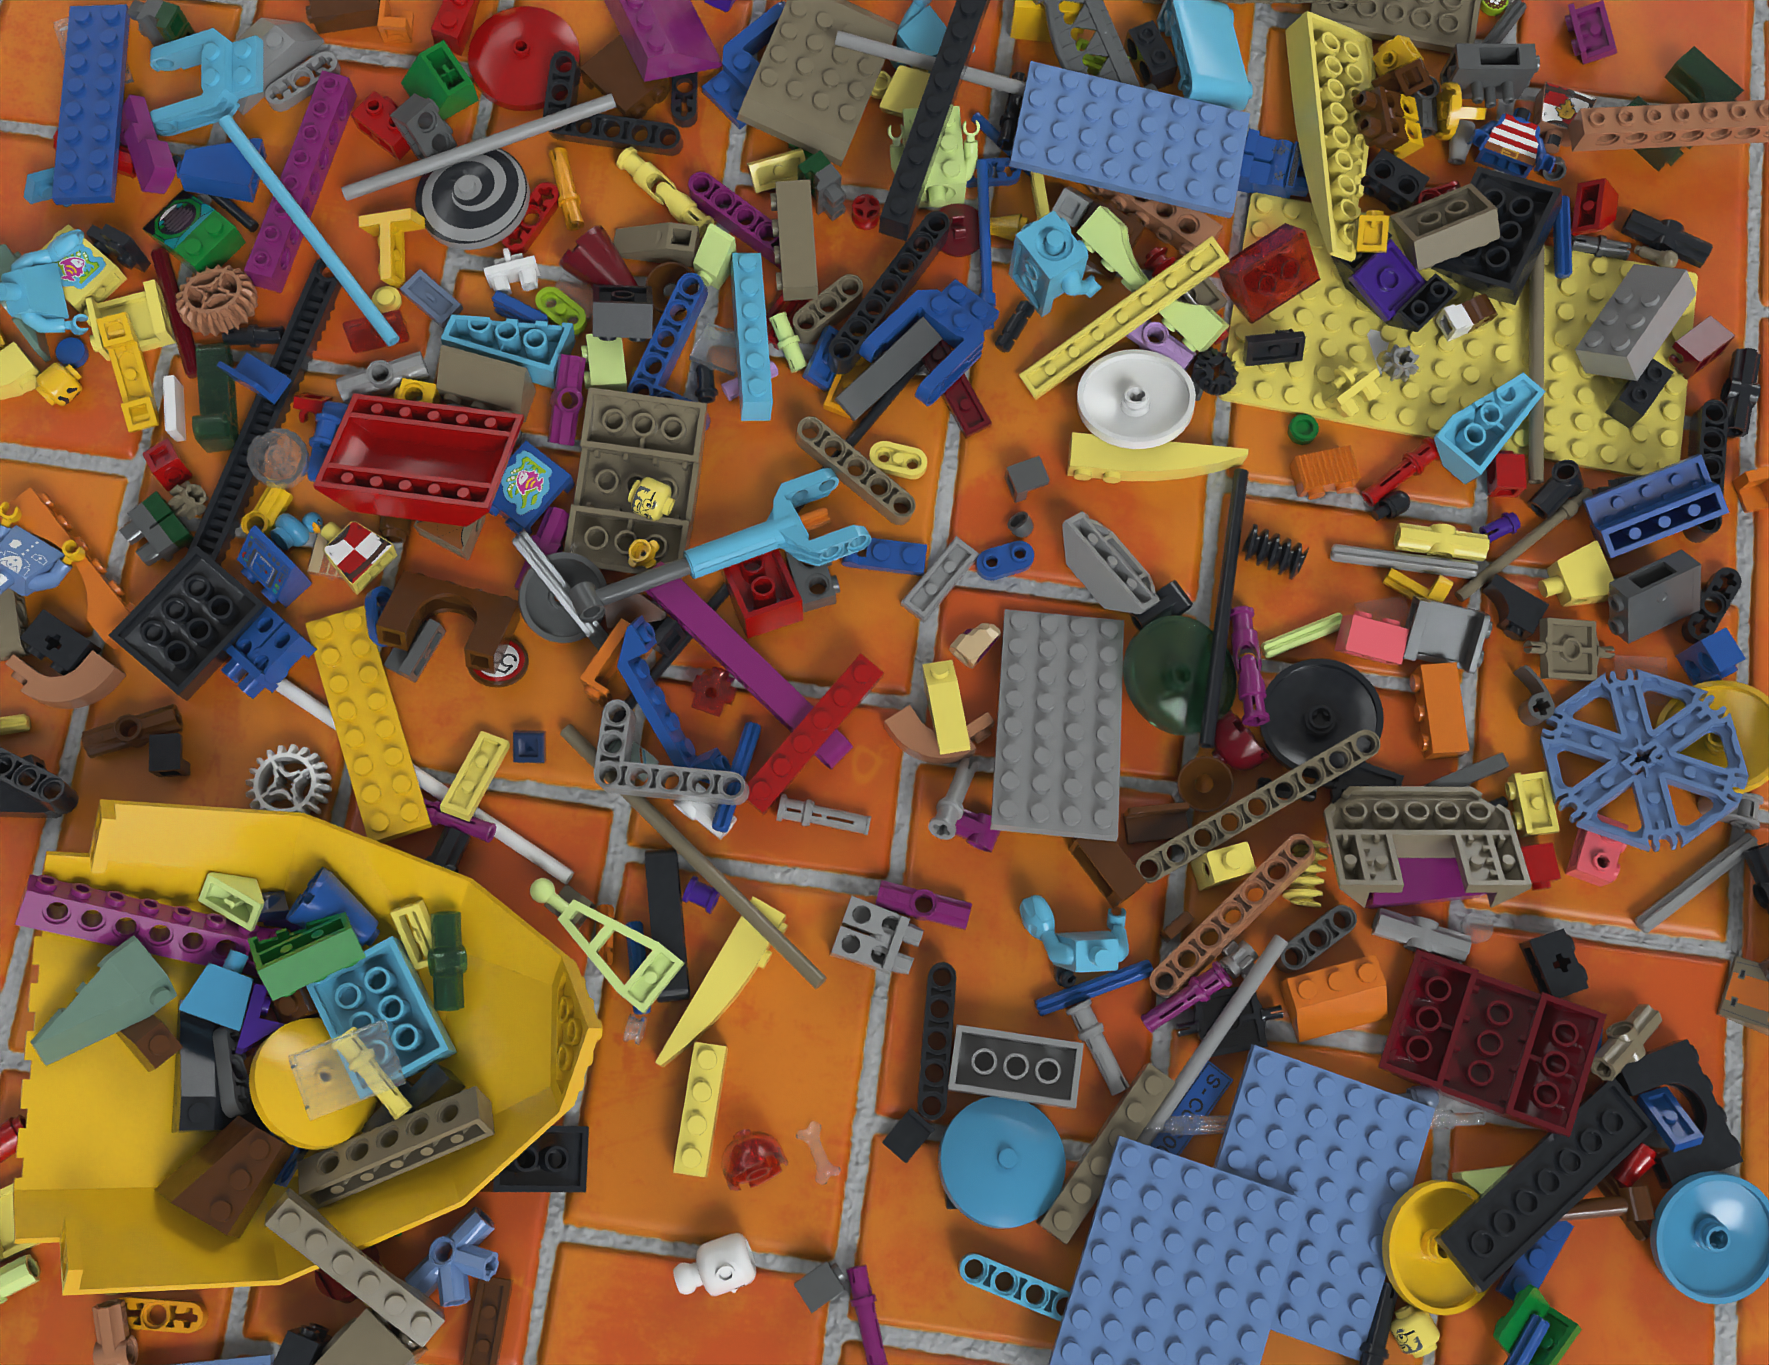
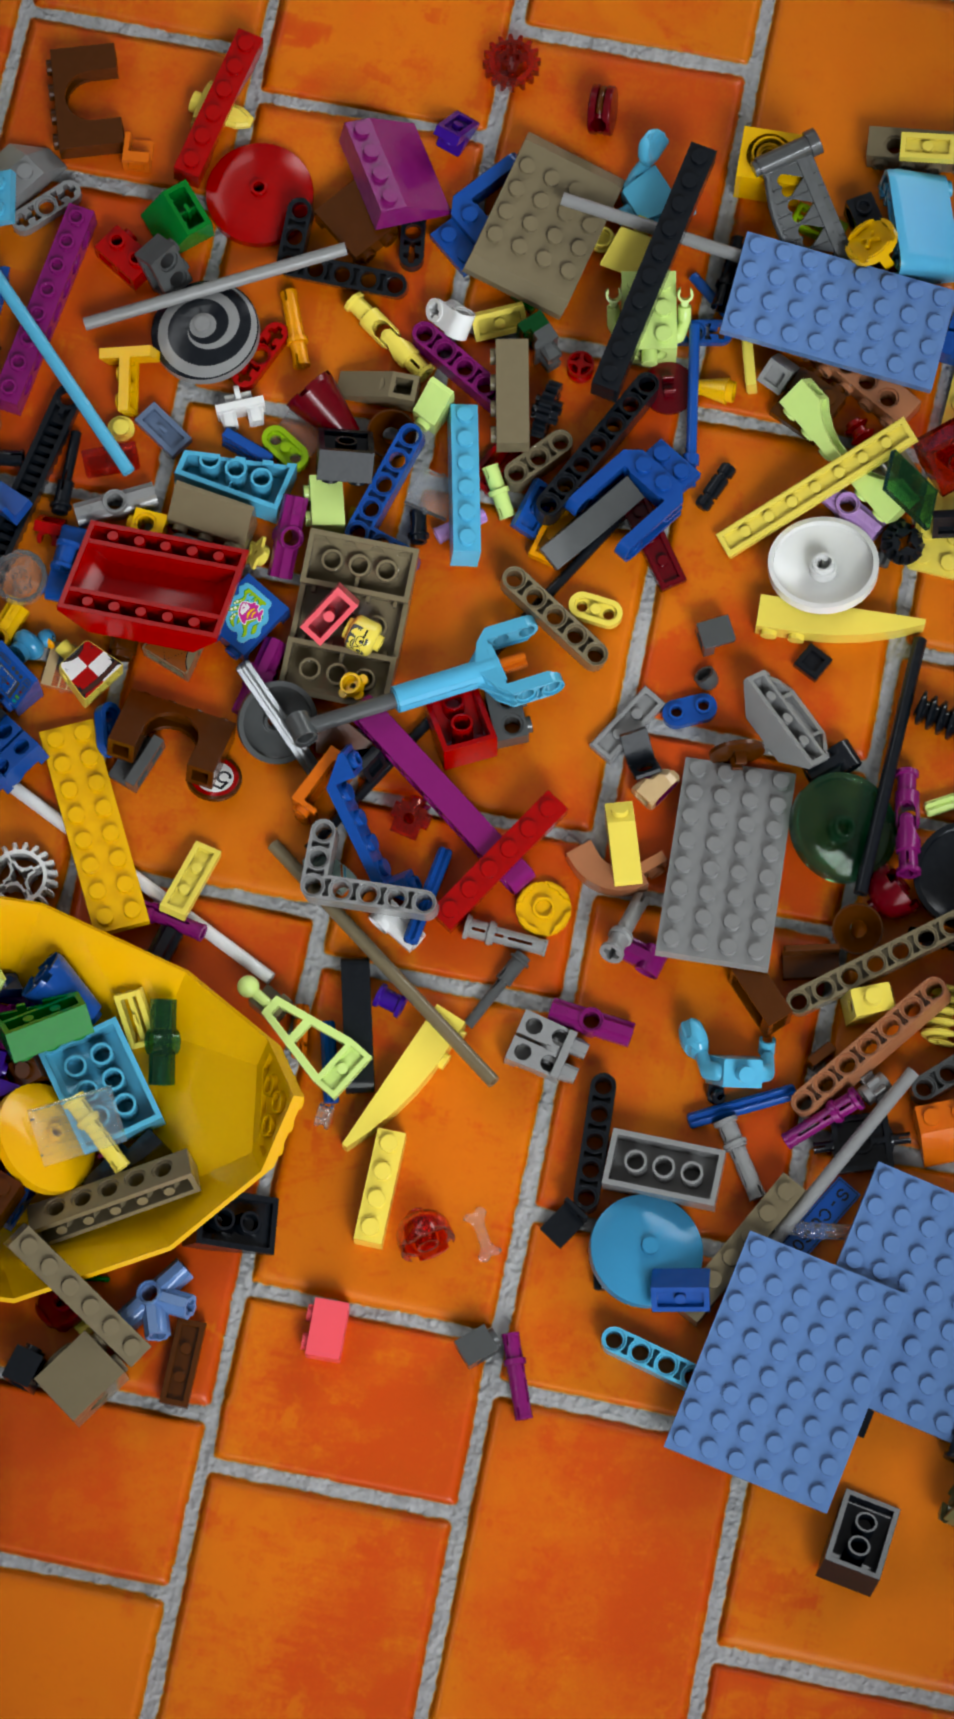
camera: 10 degrees right, 0 degrees up
(325, 377) = (65, 486): none -> black pin
(529, 746) = (239, 857): dark blue tile -> none
(536, 420) = (258, 553): none -> light yellow plate
(613, 477) = (329, 614): none -> coral brick
(648, 1278) = (326, 1330): none -> coral brick
(719, 1266) = (390, 1322): white piece -> none
(727, 166) = (450, 317): none -> white piece
(826, 861) = (505, 978): none -> dark grey pin
(833, 254) = (546, 409): none -> black gear
(863, 782) = (543, 909): none -> yellow tile
(890, 557) = (582, 701): blue plate -> none
(955, 608) = (639, 753): none -> black bracket
(1046, 1209) = (680, 1290): none -> blue panel
(1050, 262) = (751, 431): medium azure torso -> none
(1060, 601) = (737, 752): none -> reddish brown piece
(1130, 502) = (812, 662): none -> black tile
(1161, 67) = (872, 243): none -> yellow tile
(1223, 313) = (910, 490): none -> clear green piece

